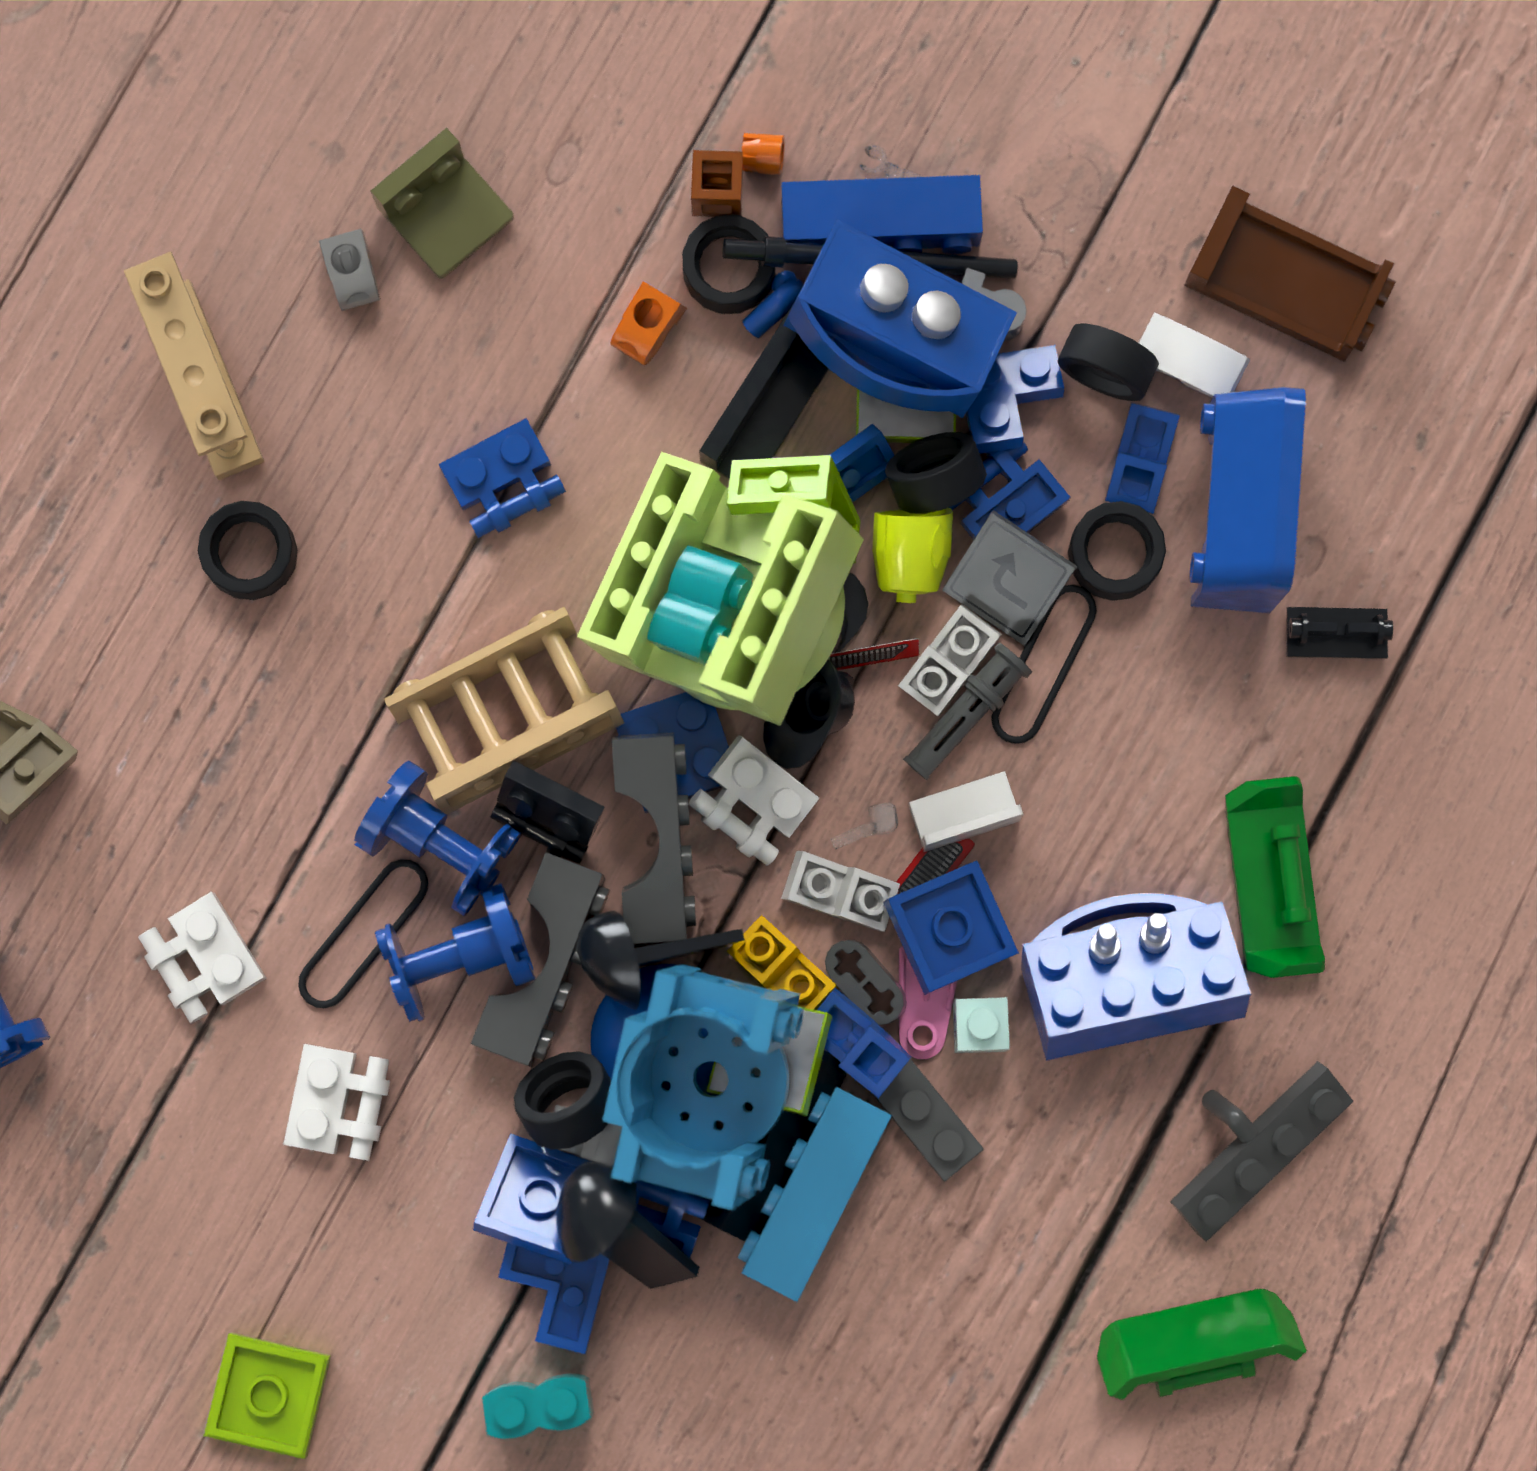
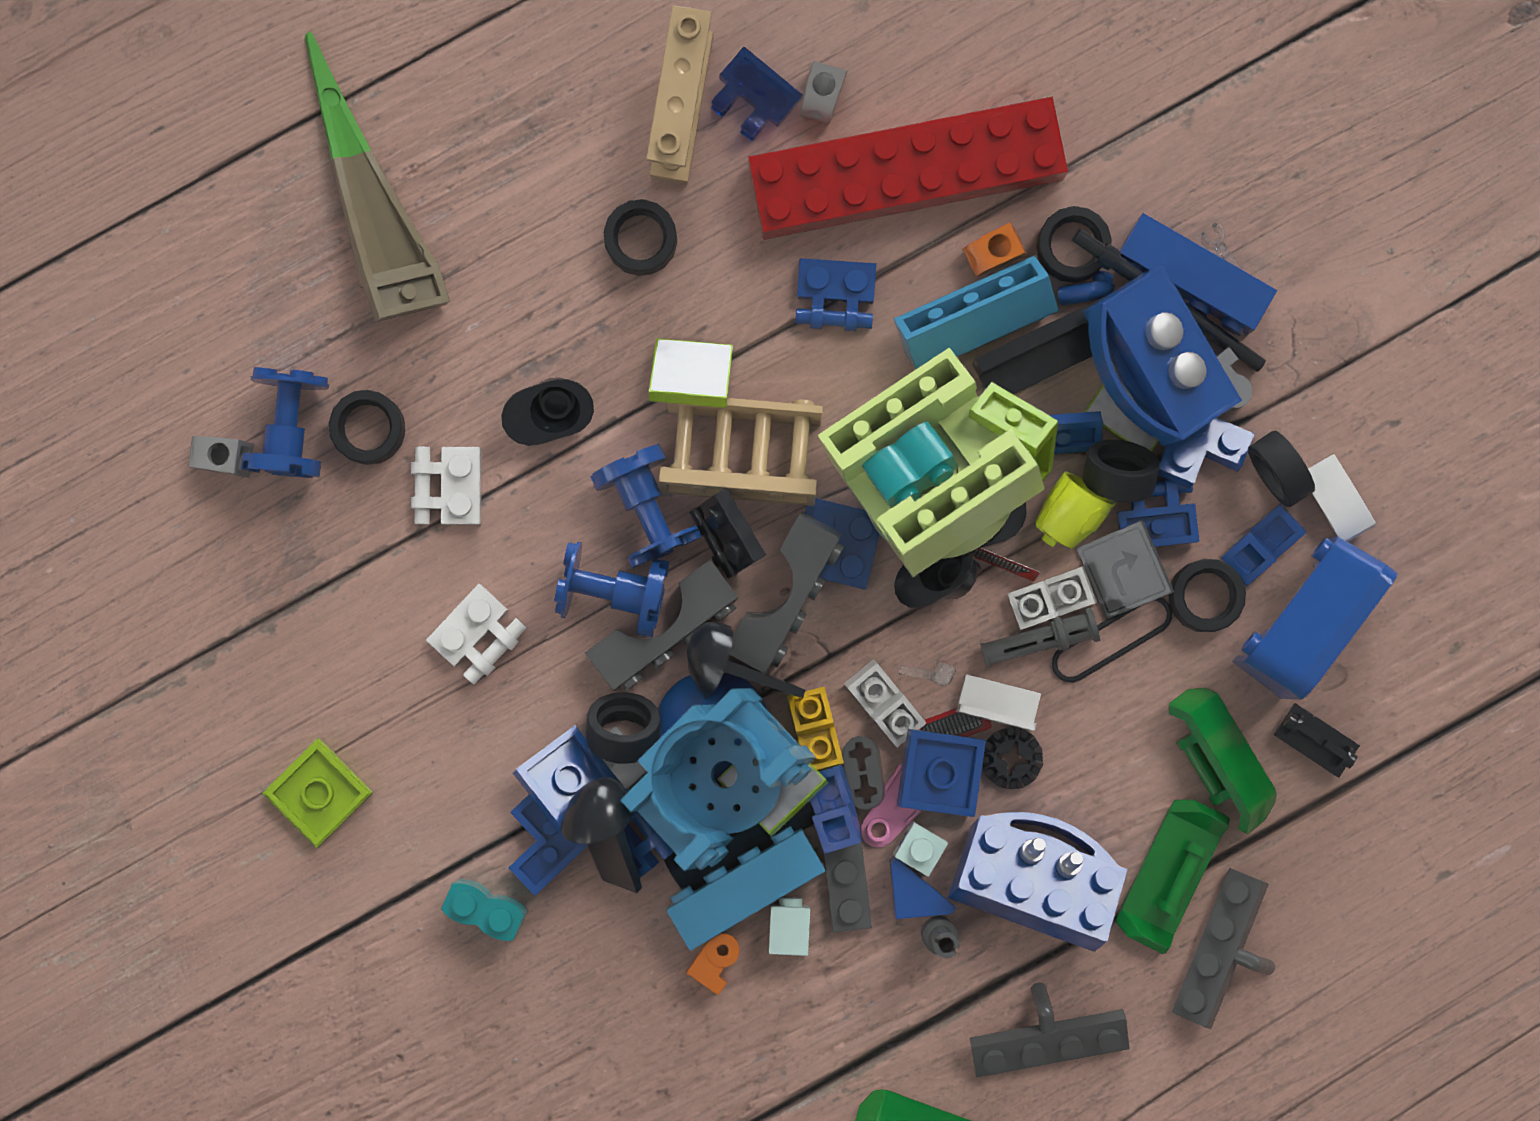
camera: 30 degrees right, 5 degrees up
(46, 918) = (345, 407): none -> black tyre
(262, 804) = (547, 411): none -> black piece
(277, 307) = (758, 86): none -> clear blue plate
(347, 919) = (554, 520): black piece -> none
(395, 662) = (690, 373): none -> flat silver tile
(441, 204) = (909, 83): olive bracket -> none
(494, 294) = (908, 168): none -> red brick
(671, 399) = (978, 312): none -> dark azure brick
(717, 183) = (1100, 186): dark orange brick -> none
(763, 153) = (1143, 183): orange hose -> none
(763, 788) = (877, 605): white plate -> none
(829, 1293) = (712, 959): none -> orange leg
(892, 1206) = (789, 927): none -> light aqua brick
(1006, 1081) = (913, 895): none -> blue slope
(1008, 884) = (1001, 743): none -> black gear
(1056, 1117) = (939, 928): none -> dark grey pin
(1251, 708) = (1228, 754): none -> green piece
(1289, 278) = (1439, 486): reddish brown panel -> none
(1383, 925) = (1223, 949): none -> dark grey plate

